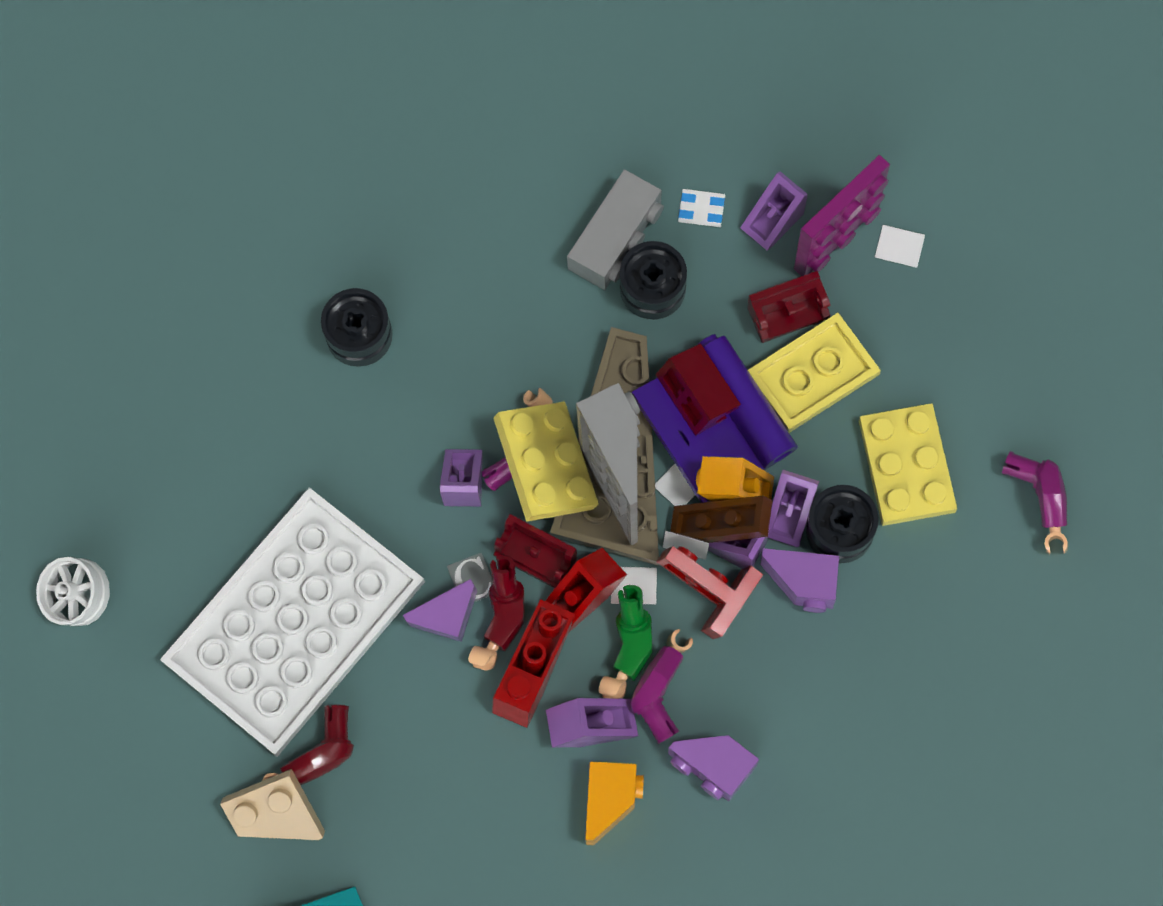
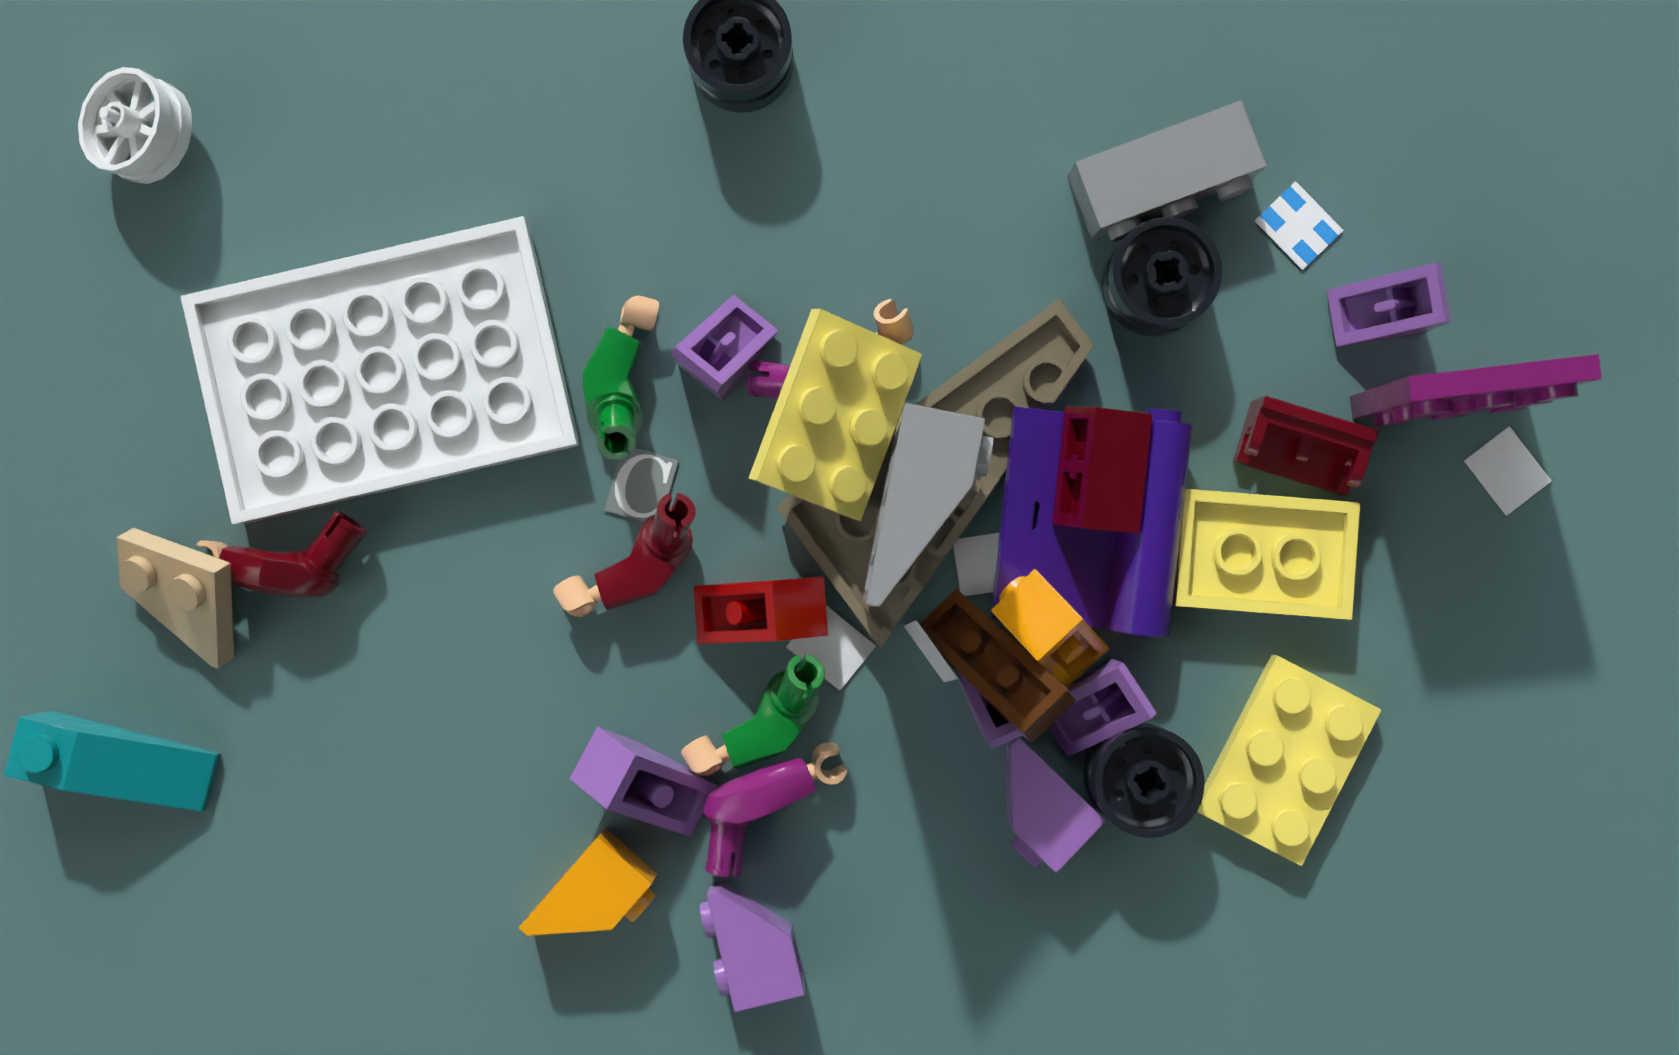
camera: 30 degrees right, 15 degrees up
(422, 543) = (609, 395): none -> green arm
(445, 614) = (568, 511): medium lavender slope -> none
(532, 664) = (629, 654): red slope -> none
(535, 551) = (738, 515): dark red hinge -> none
(712, 586) = (932, 759): bracket -> none
(1050, 491) = (1435, 937): magenta arm -> none

